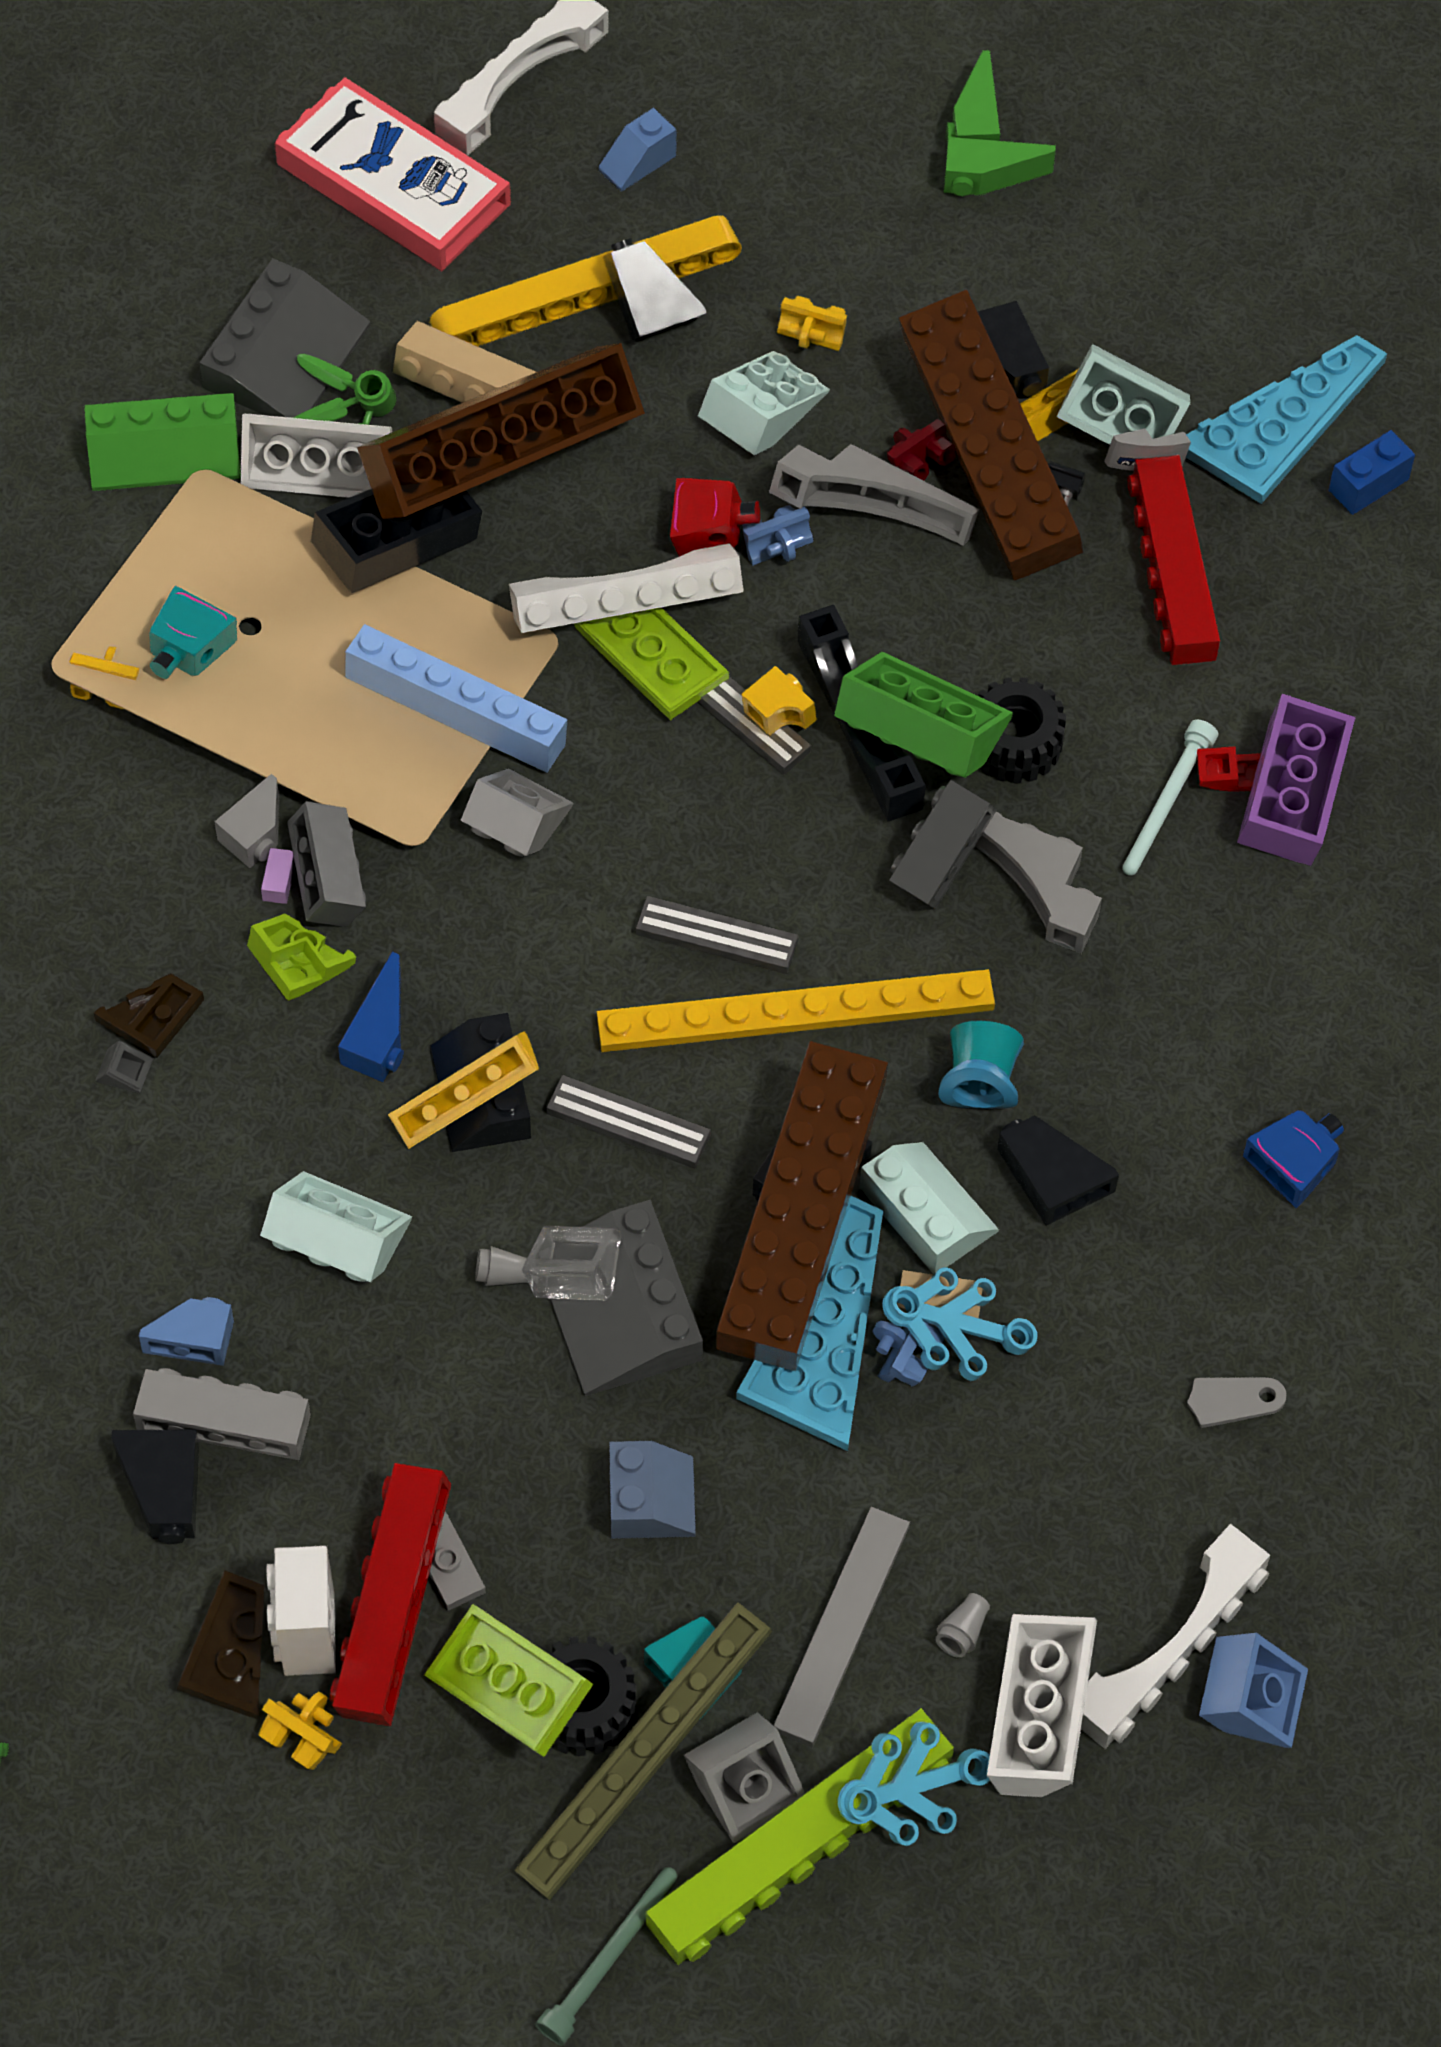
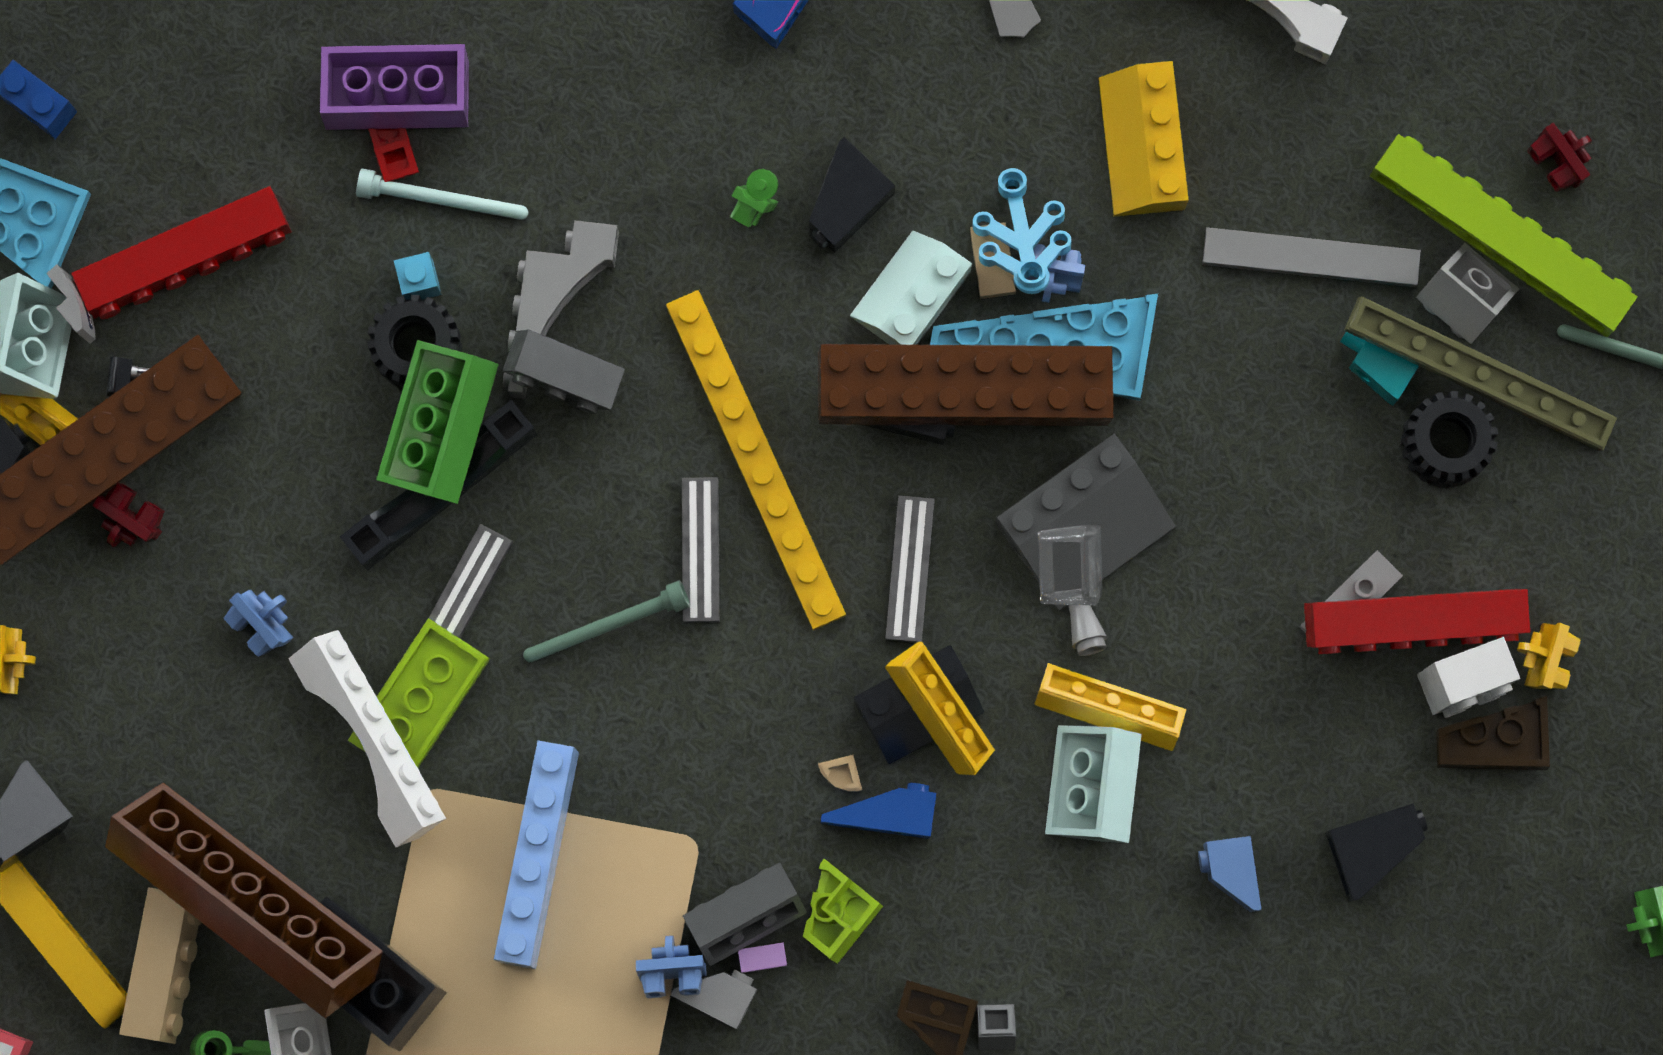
camera: 105 degrees left, 20 degrees up
(223, 1413) = (1299, 818): light grey brick -> none
(310, 782) = (671, 963): none -> medium blue hips
(413, 1272) = (1110, 706): none -> yellow slope
(437, 1000) = (842, 773): none -> tan tile
(508, 1680) = (1465, 496): lime tile -> none
(514, 811) = (631, 764): light grey slope -> none
(651, 1491) = (1251, 442): sand blue slope -> none
(672, 886) = (671, 598): none -> sand green piece
(708, 514) = (260, 687): red torso -> none
(760, 401) = (107, 680): light aqua slope -> none
(778, 702) = (452, 560): yellow brick -> none
(872, 486) = (182, 547): light grey arch -> none
(892, 1929) = (1567, 152): none -> dark red hips
(908, 1784) = (1473, 185): medium azure plant -> none
(962, 1627) = (1282, 160): light grey cone -> none
(982, 1066) = (774, 277): hat -> none
(1029, 1489) = (1143, 139): none -> yellow slope
(1041, 1704) = (1340, 72): white slope -> none
(1073, 1070) = (755, 197): none -> bright green hips
(1085, 750) = (417, 276): none -> medium azure brick

